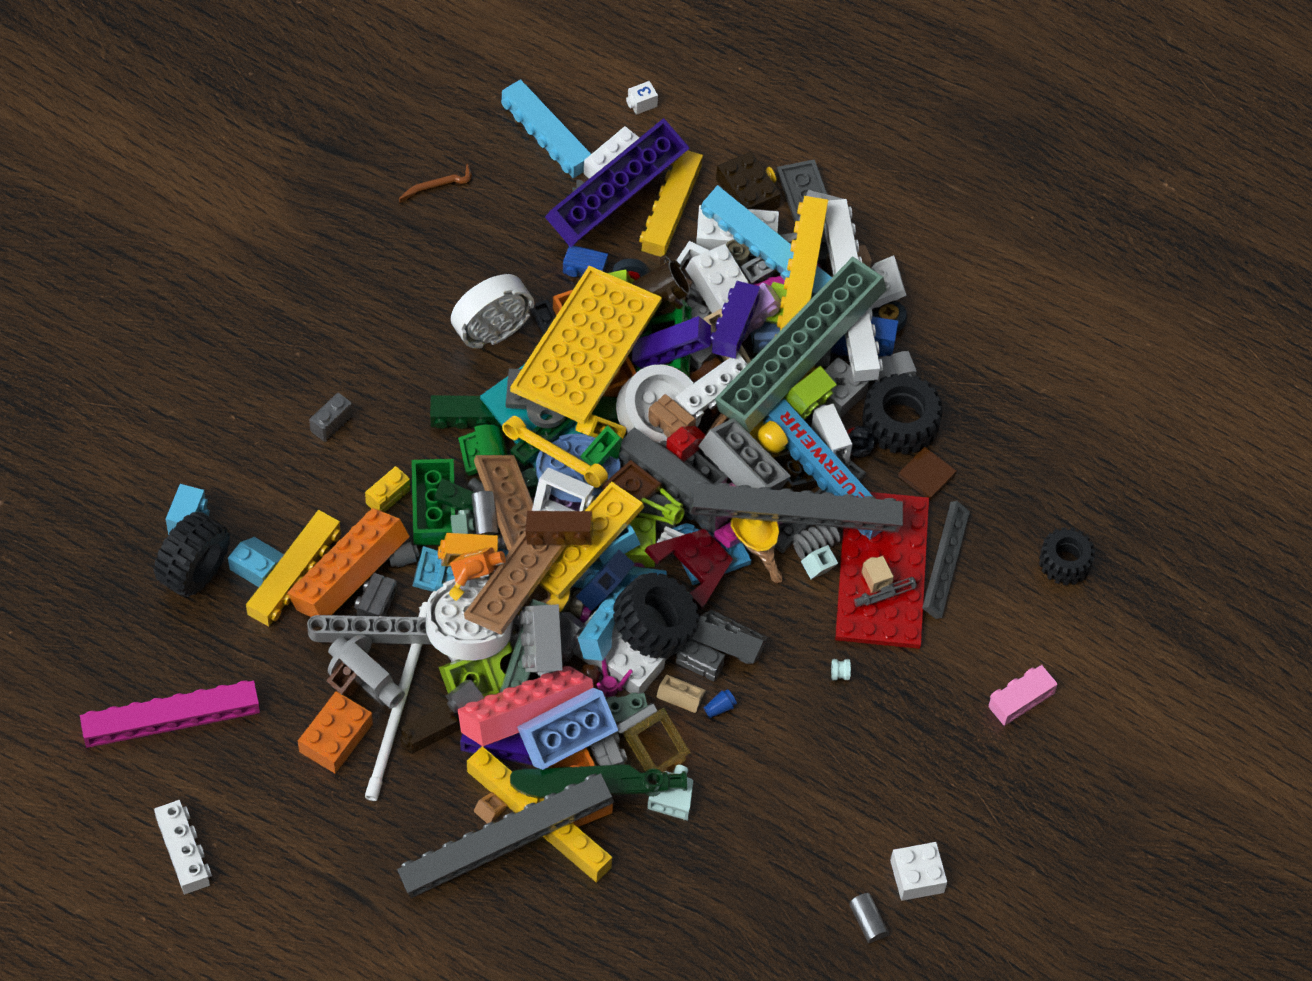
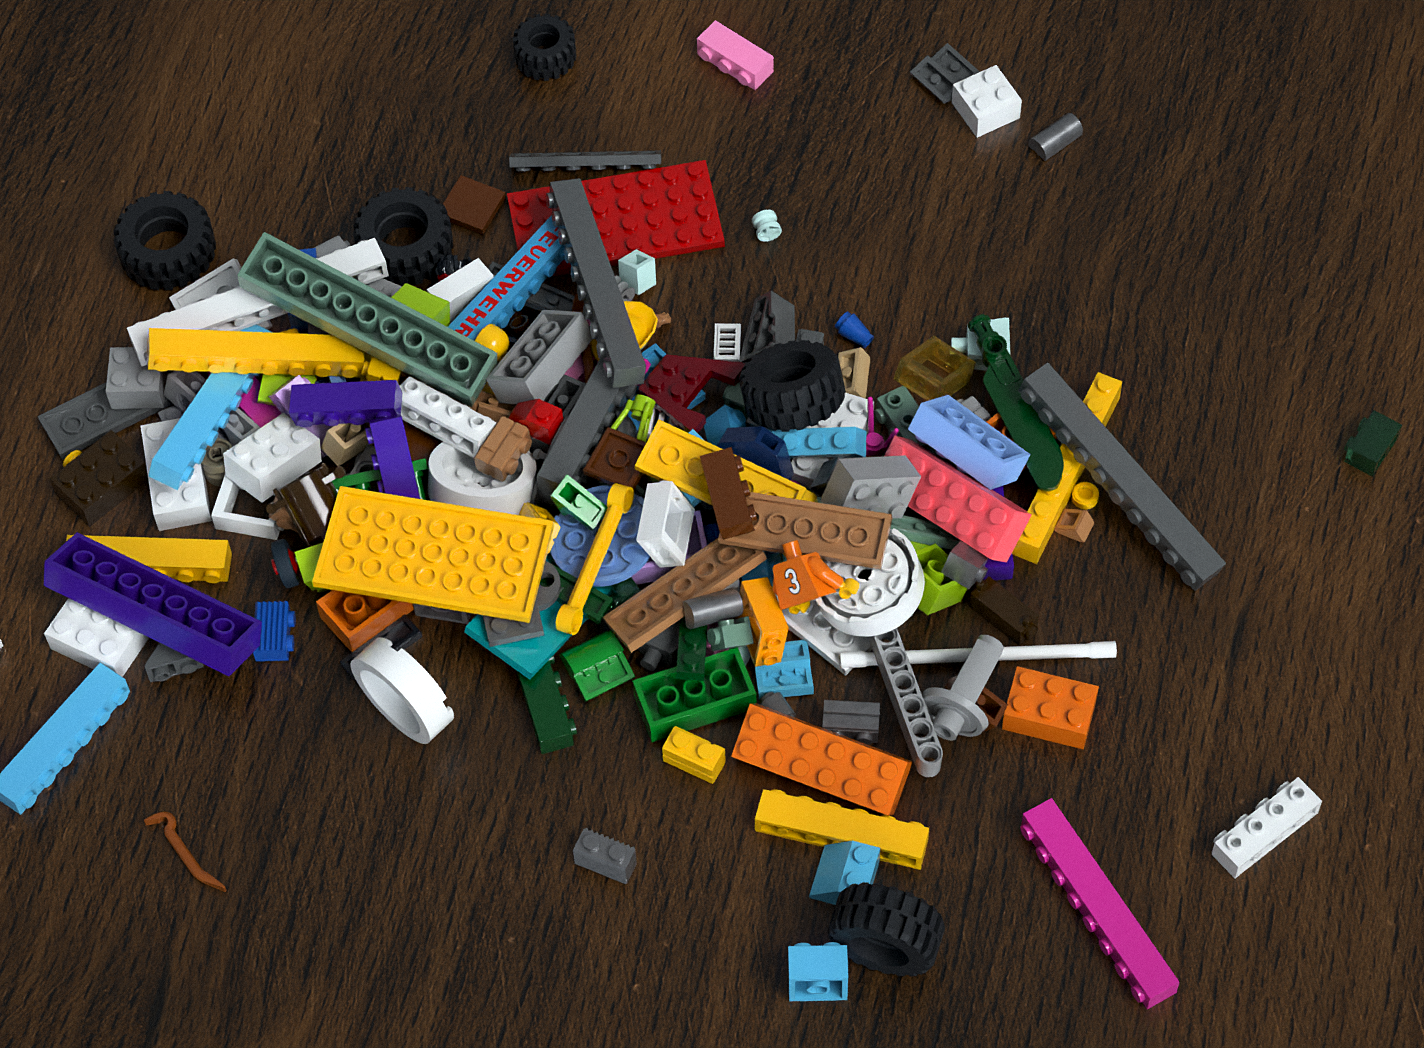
camera: 100 degrees left, 0 degrees up
(636, 718) = (915, 386): light grey tile -> none
(732, 603) = (737, 343): none -> white slope
(877, 573) = (637, 208): tan brick -> none
(886, 592) = (651, 194): dark grey piece -> none
(948, 240) = (157, 215): none -> black tyre
(962, 854) = (943, 71): none -> dark grey slope

